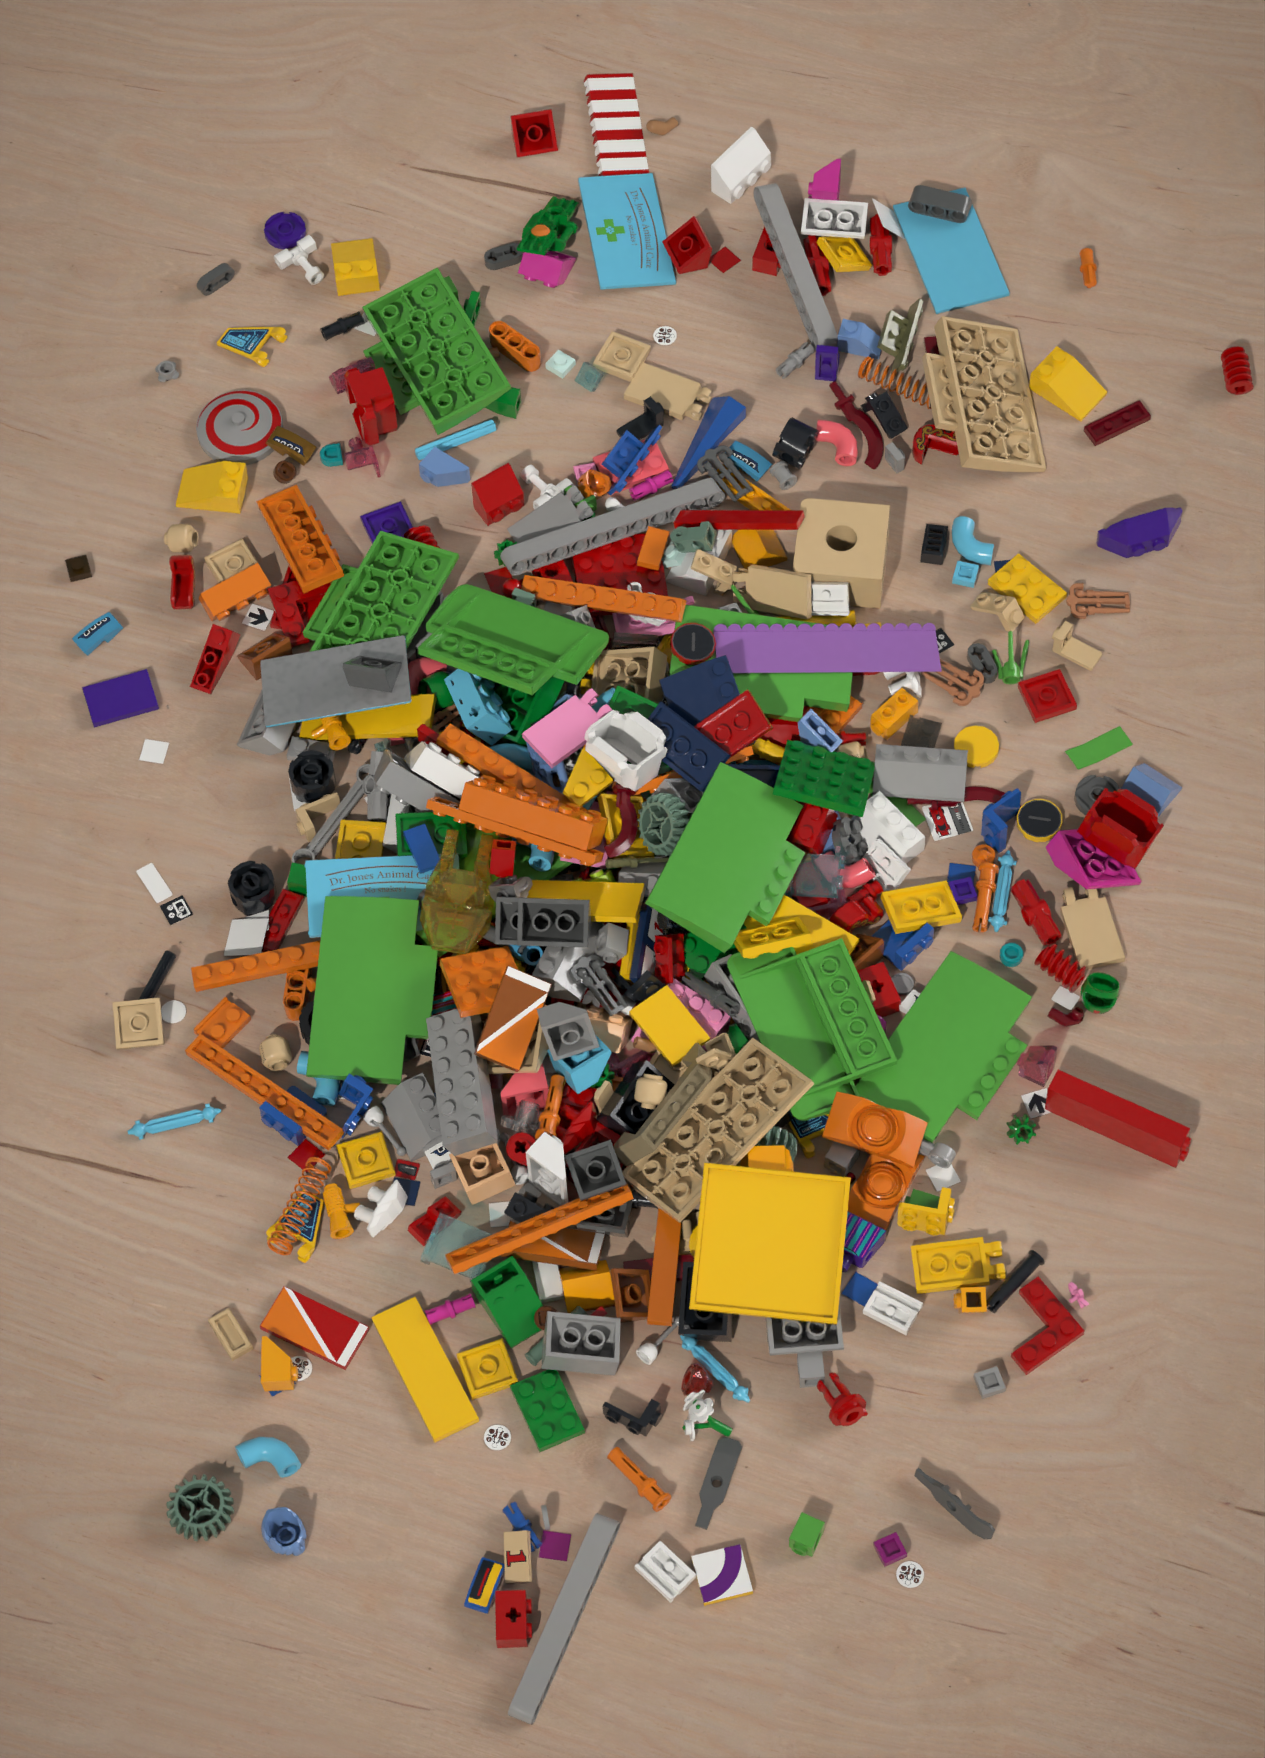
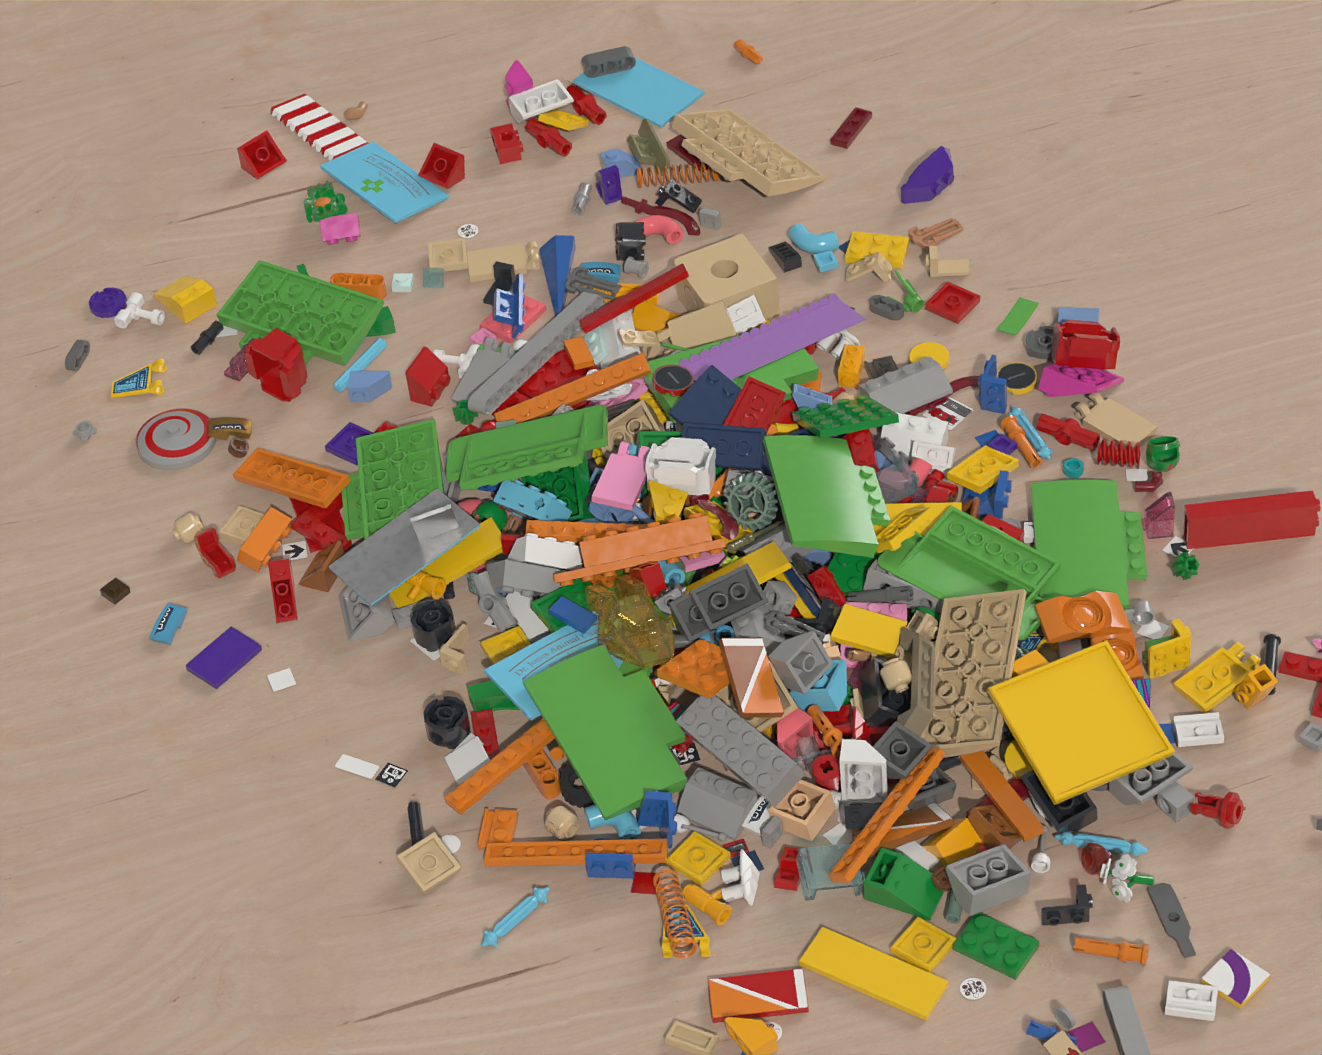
camera: 30 degrees left, 15 degrees down
(213, 487) = (187, 484): yellow slope -> none
(331, 455) = (267, 421): teal tile -> none
(333, 821) = (474, 646): light grey piece -> none
(361, 456) = (295, 408): clear pink bracket -> none
(450, 1309) = (858, 918): dark pink pin -> none
(503, 256) = (300, 239): dark grey beam -> none
(593, 483) = (498, 334): orange piece -> none
(651, 485) = (540, 320): dark pink pin -> none
(694, 538) = (608, 327): sand green leg -> none
(724, 259) = (474, 167): red sticker -> none
(740, 166) = (440, 104): white slope -> none
(795, 265) = (535, 138): light grey beam -> none
(806, 1535) = (1275, 912): bright green brick -> none
(933, 438) = (732, 193): red animal -> none
(962, 699) = (879, 323): nougat piece -> none
(982, 854) = (994, 418): orange tile -> none
(1066, 384) = (795, 121): yellow slope -> none
(1236, 371) = (909, 58): red piece -> none

